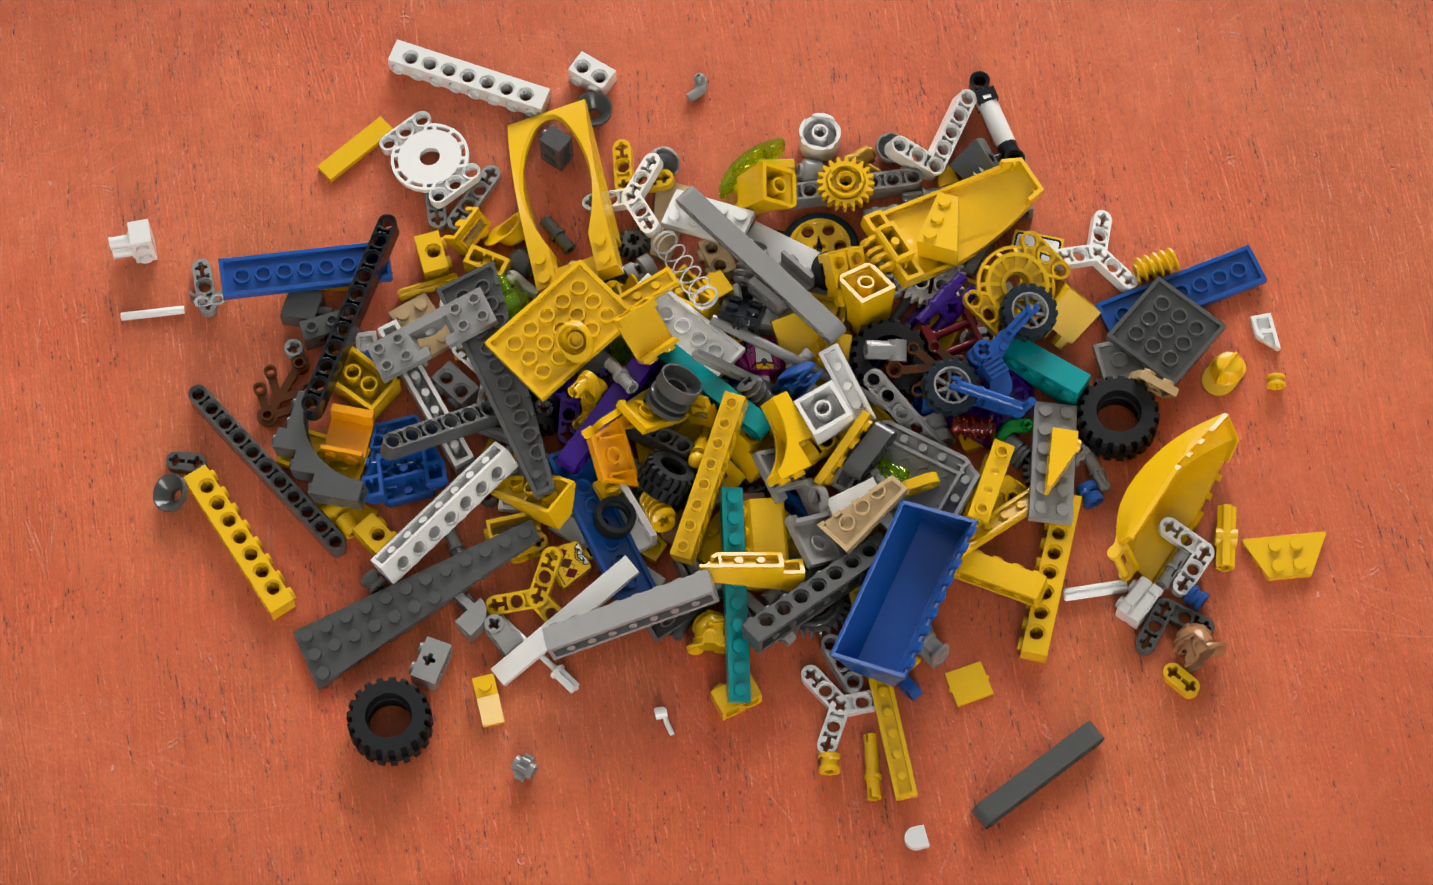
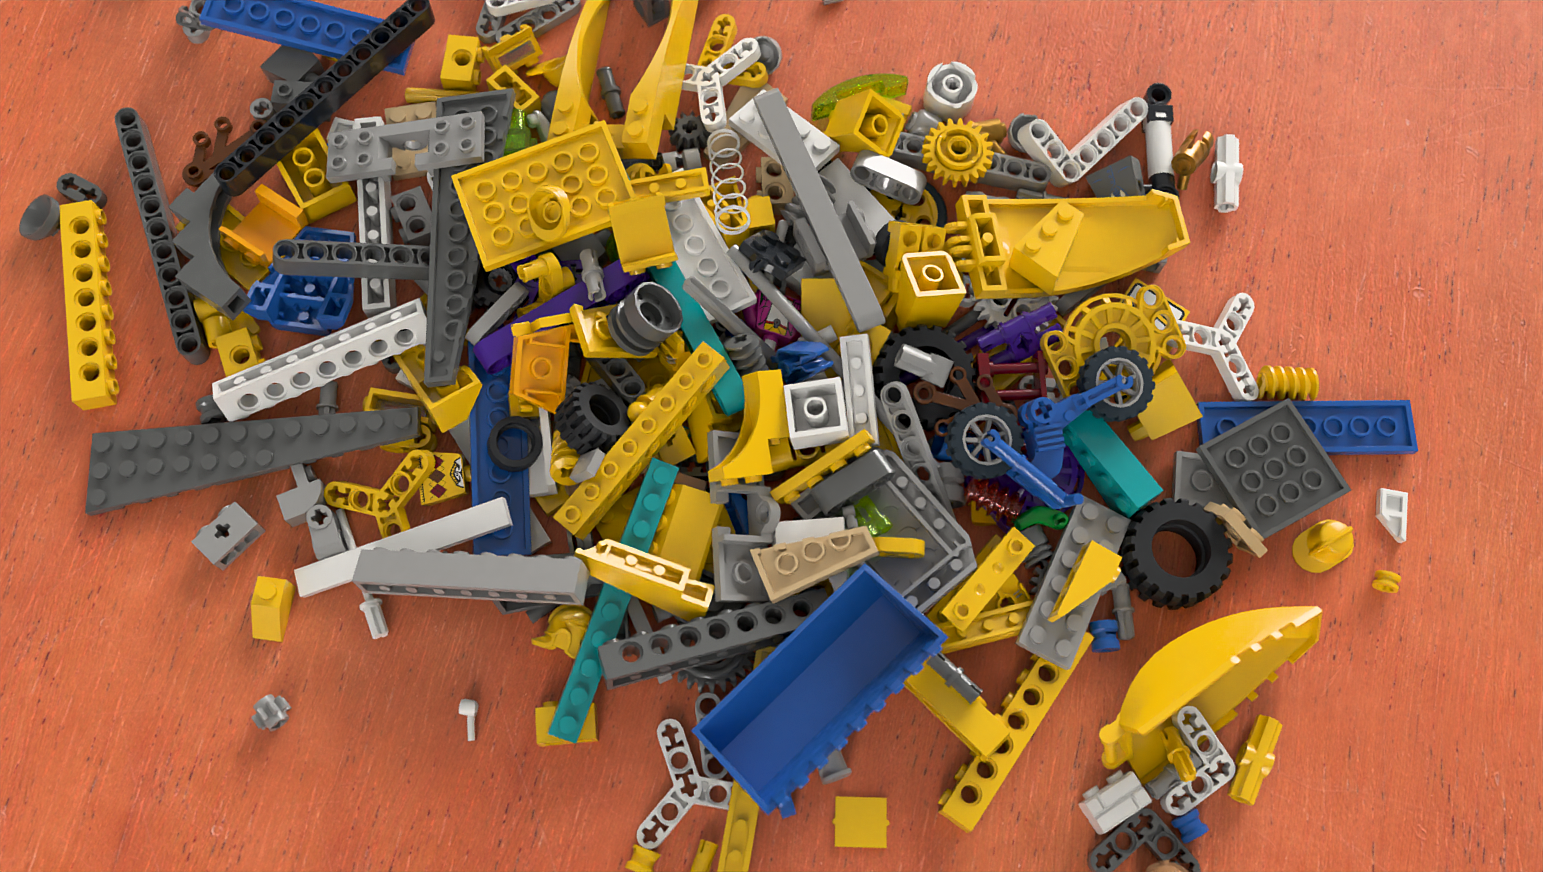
camera: 15 degrees right, 5 degrees up
(141, 314) = (134, 15): white bar -> none
(388, 694) = (110, 570): black tyre -> none
(561, 430) = (497, 313): none -> light grey beam
(679, 508) = (587, 465): none -> light grey tile
(801, 221) = (888, 177): none -> light grey beam
(947, 177) = (1078, 189): yellow tile -> none
(994, 555) = (955, 677): none -> dark grey pin
(1022, 119) = (1191, 156): none -> pearl gold piece
(1054, 122) = (1226, 173): none -> white piece
(1095, 590) = (1064, 762): white axle -> none
(1169, 551) = (1178, 754): none -> yellow axle
(1286, 554) = (1324, 812): yellow wing -> none

